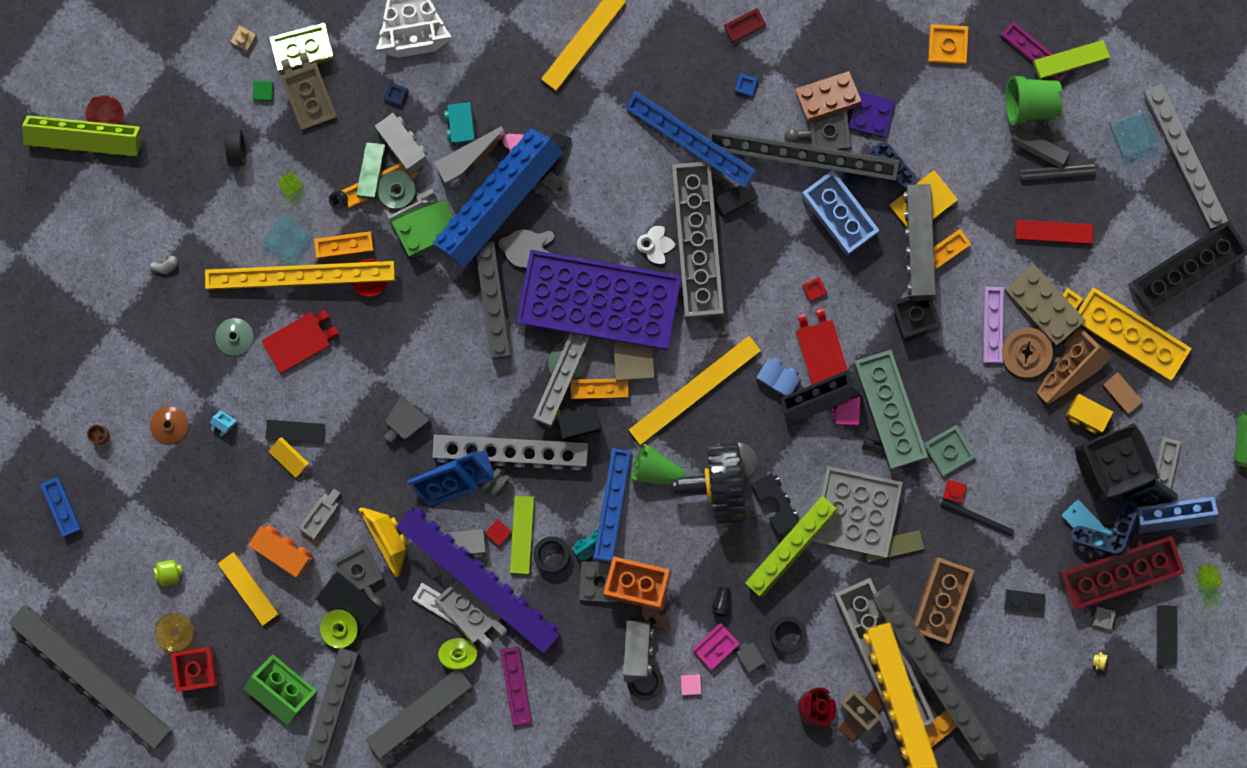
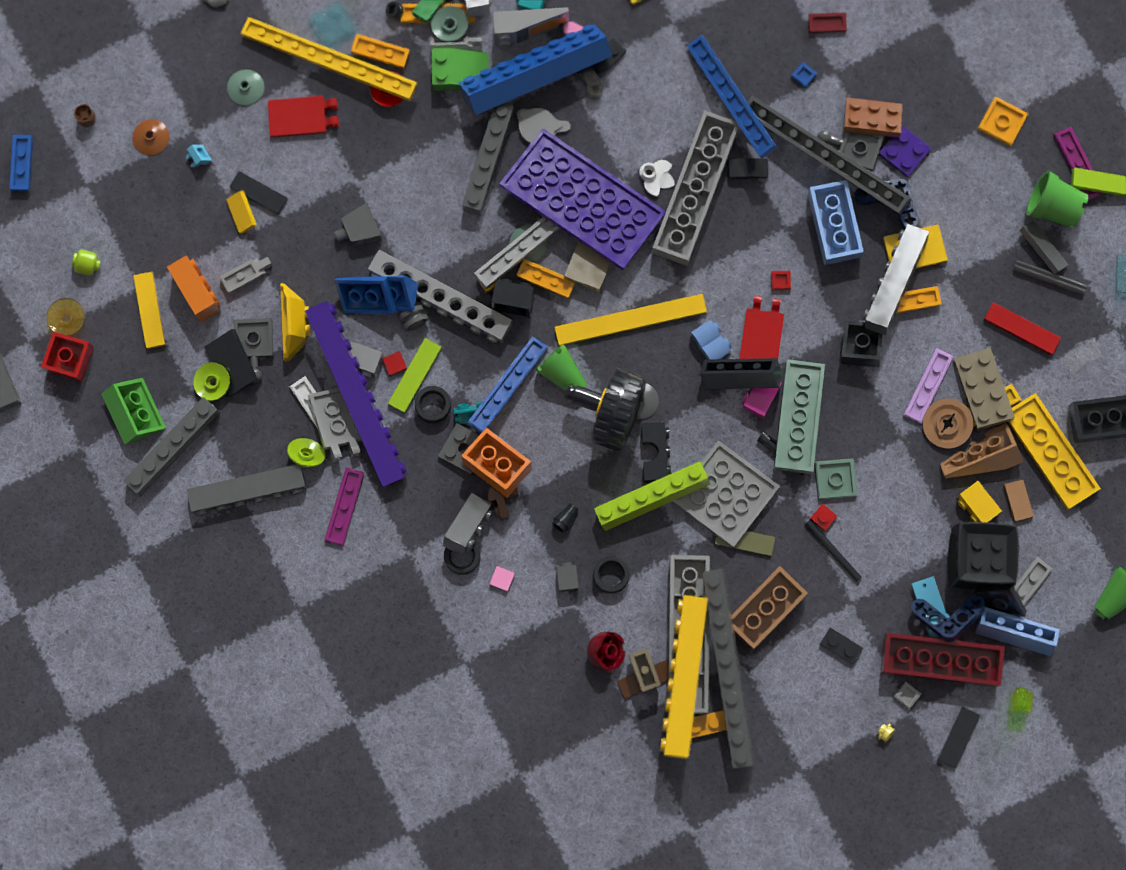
camera: 20 degrees right, 5 degrees down
(716, 646) = (541, 554): dark pink plate -> none

